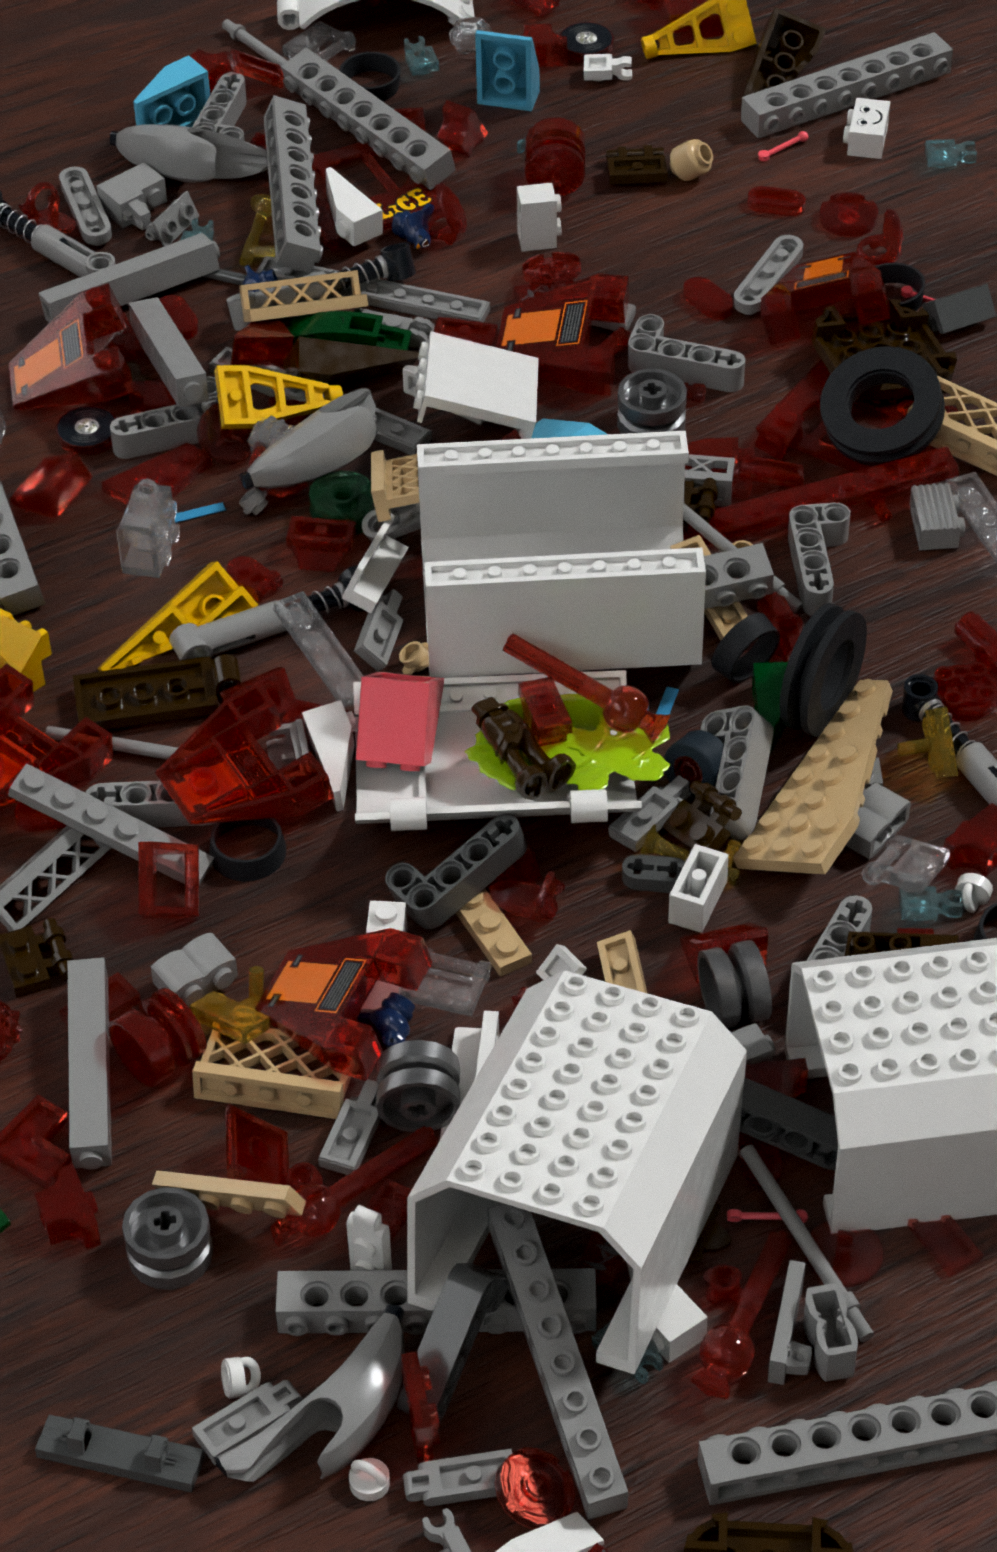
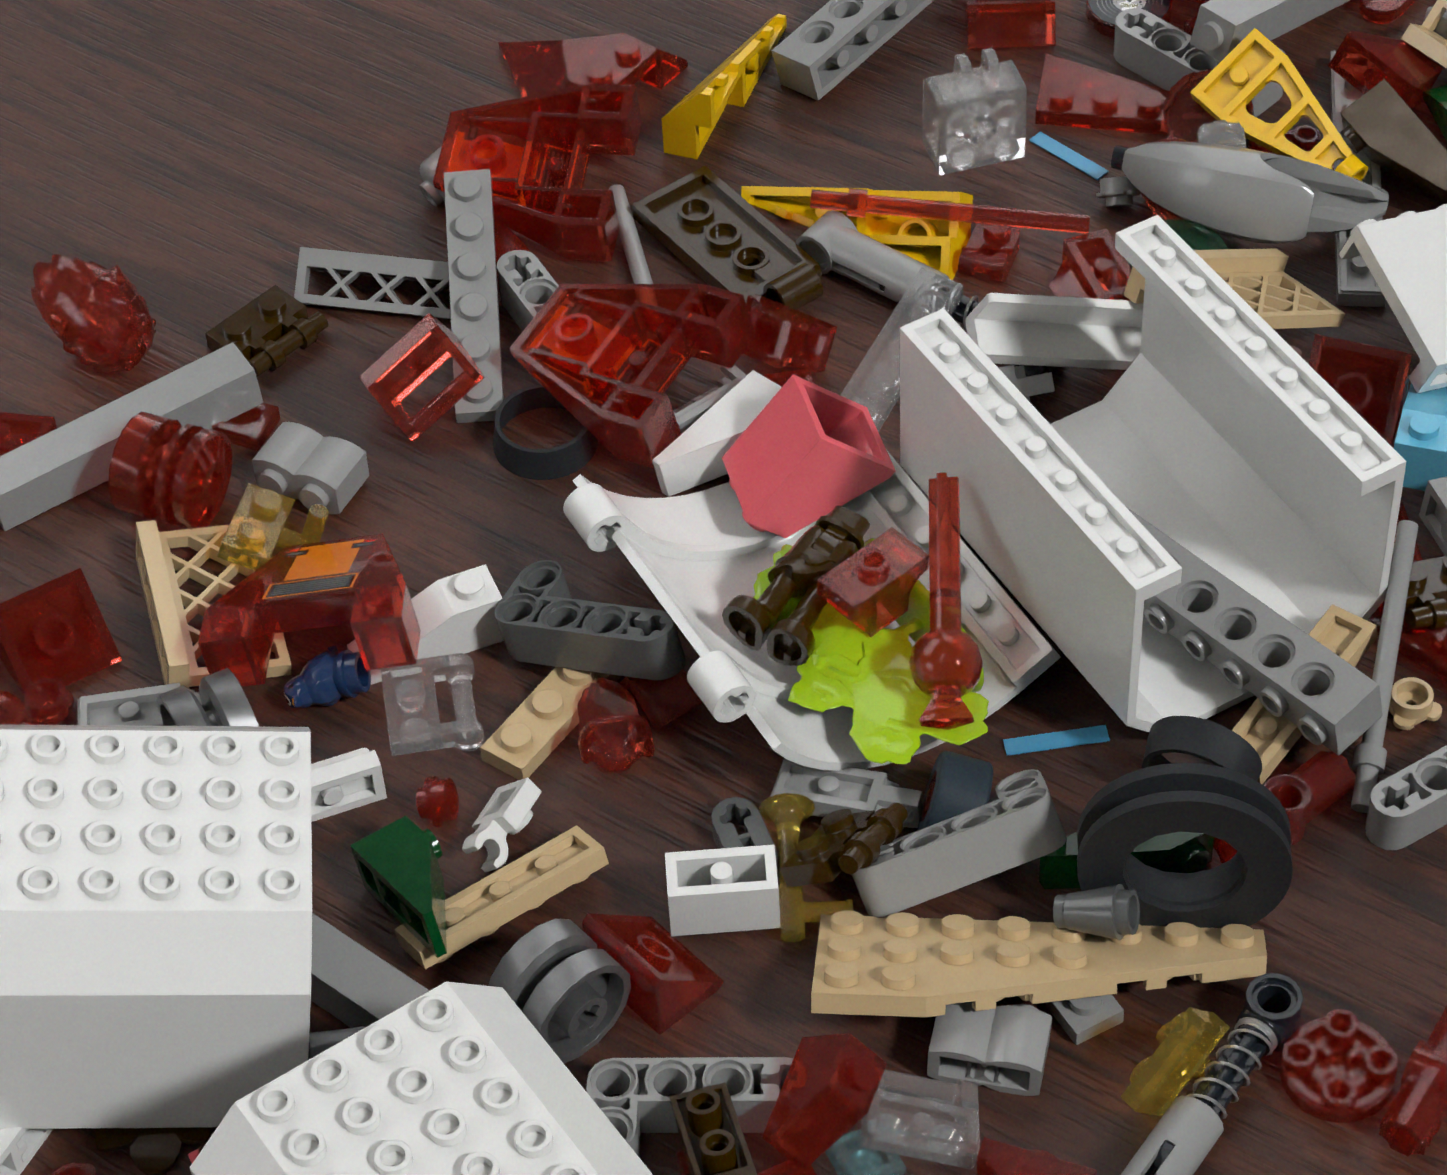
camera: 65 degrees right, 0 degrees up
(190, 607) = (859, 203): none -> clear red bar
(827, 728) = (1099, 911): none -> dark grey cone
(883, 888) = (823, 1095): none -> clear red slope

